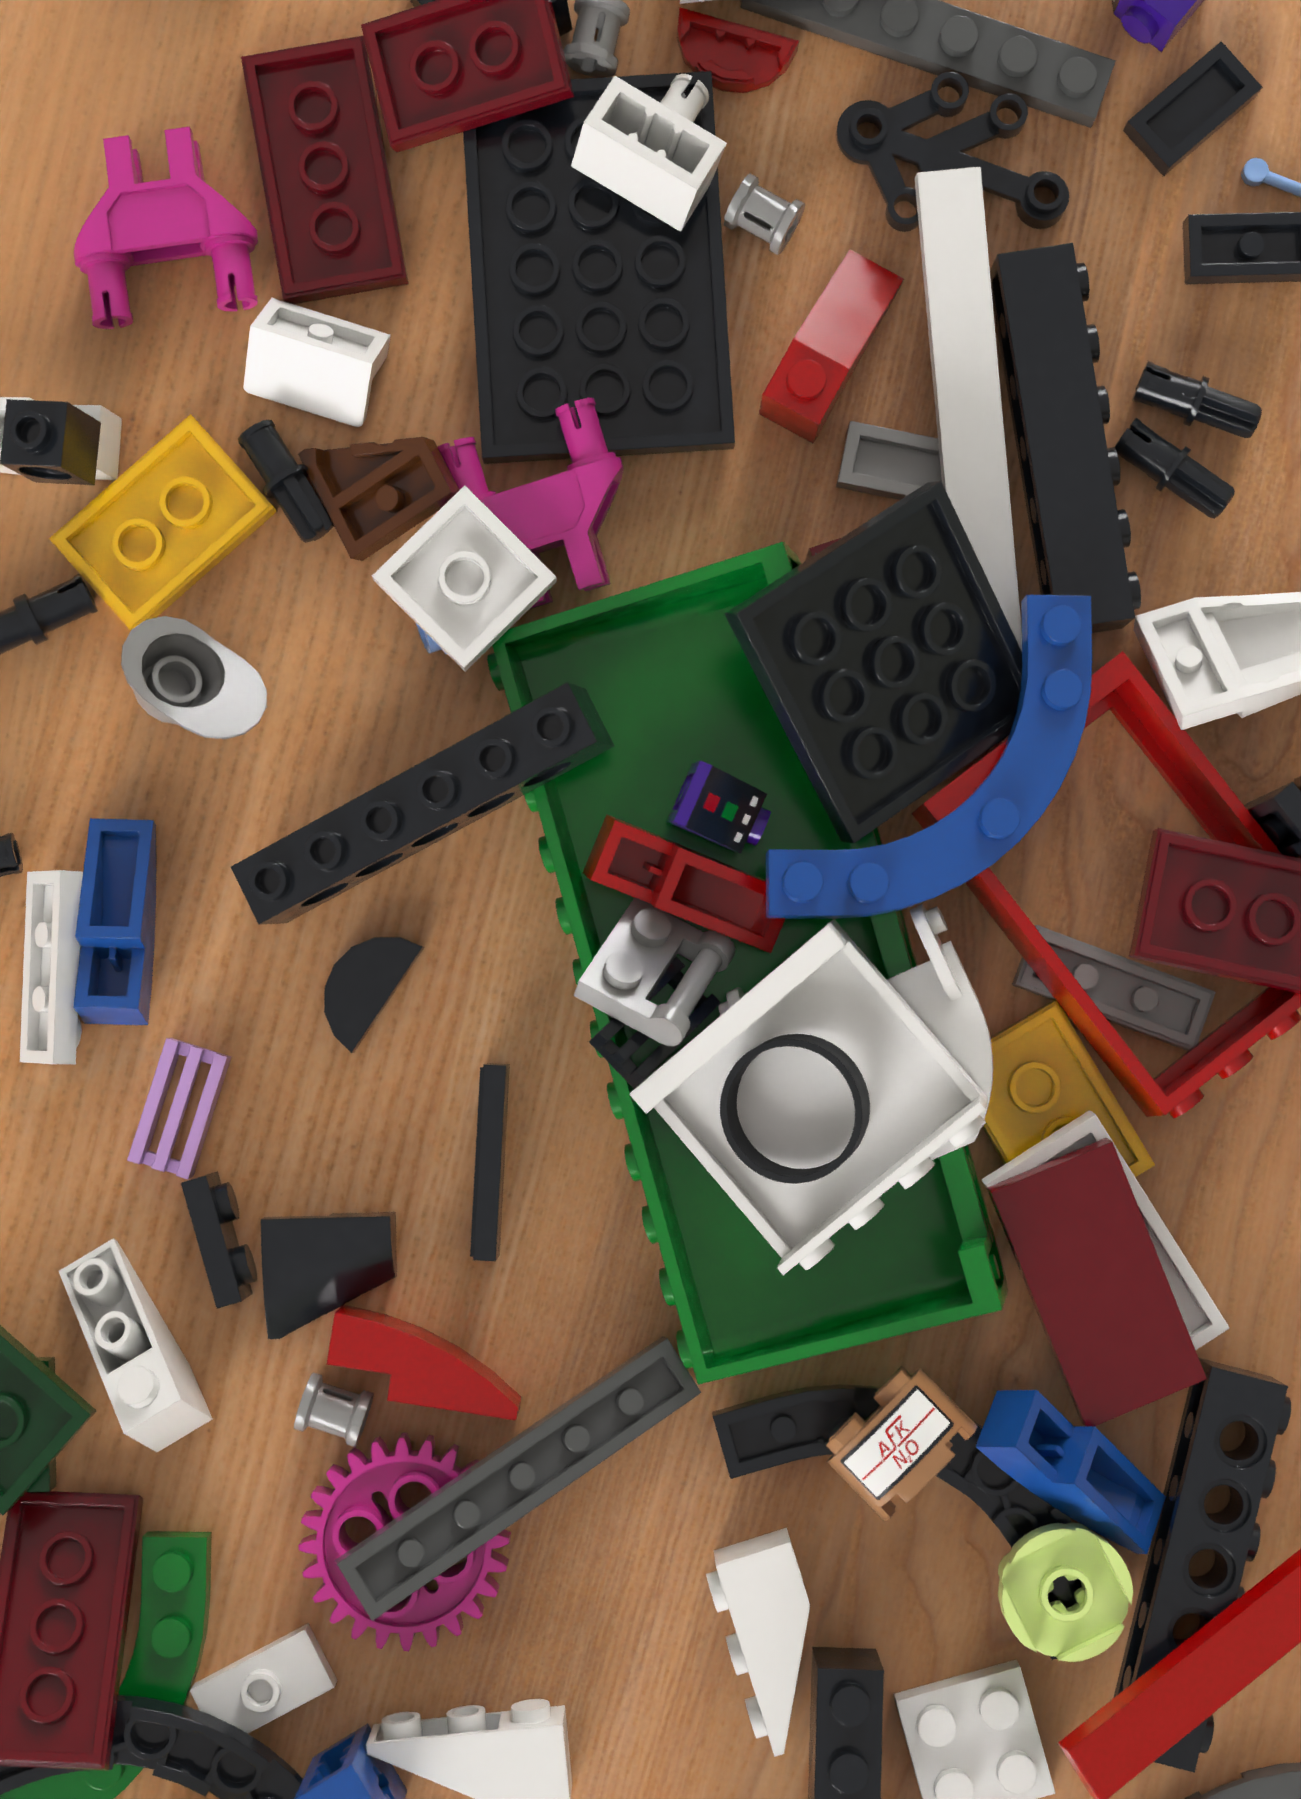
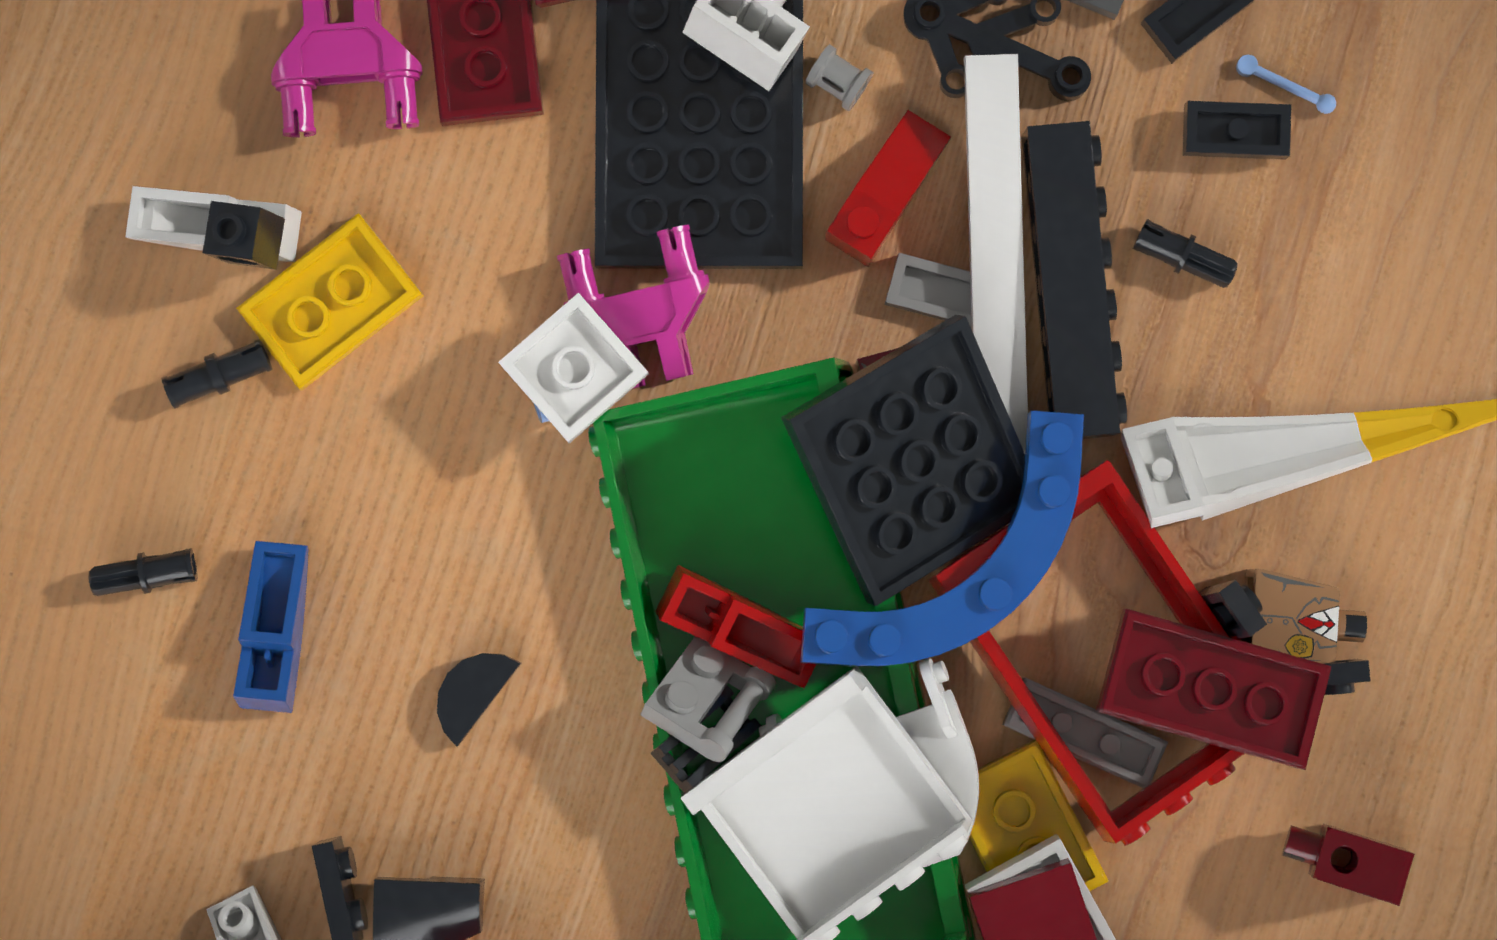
camera: 10 degrees right, 0 degrees up
(50, 968) = (215, 662): white plate -> none
(162, 1158) = (297, 824): lavender tile -> none
(192, 679) = (346, 434): light grey piece -> none
(286, 481) = (433, 273): black axle -> none
(313, 361) = (462, 175): white panel -> none
(379, 489) = (508, 286): reddish brown wing -> none
(423, 805) = (528, 551): black brick -> none
(489, 1162) = (564, 843): black tile -> none
(720, 808) = (769, 569): slope -> none
(749, 1154) = (777, 854): black tyre -> none
(1174, 469) = (1162, 309): black axle -> none

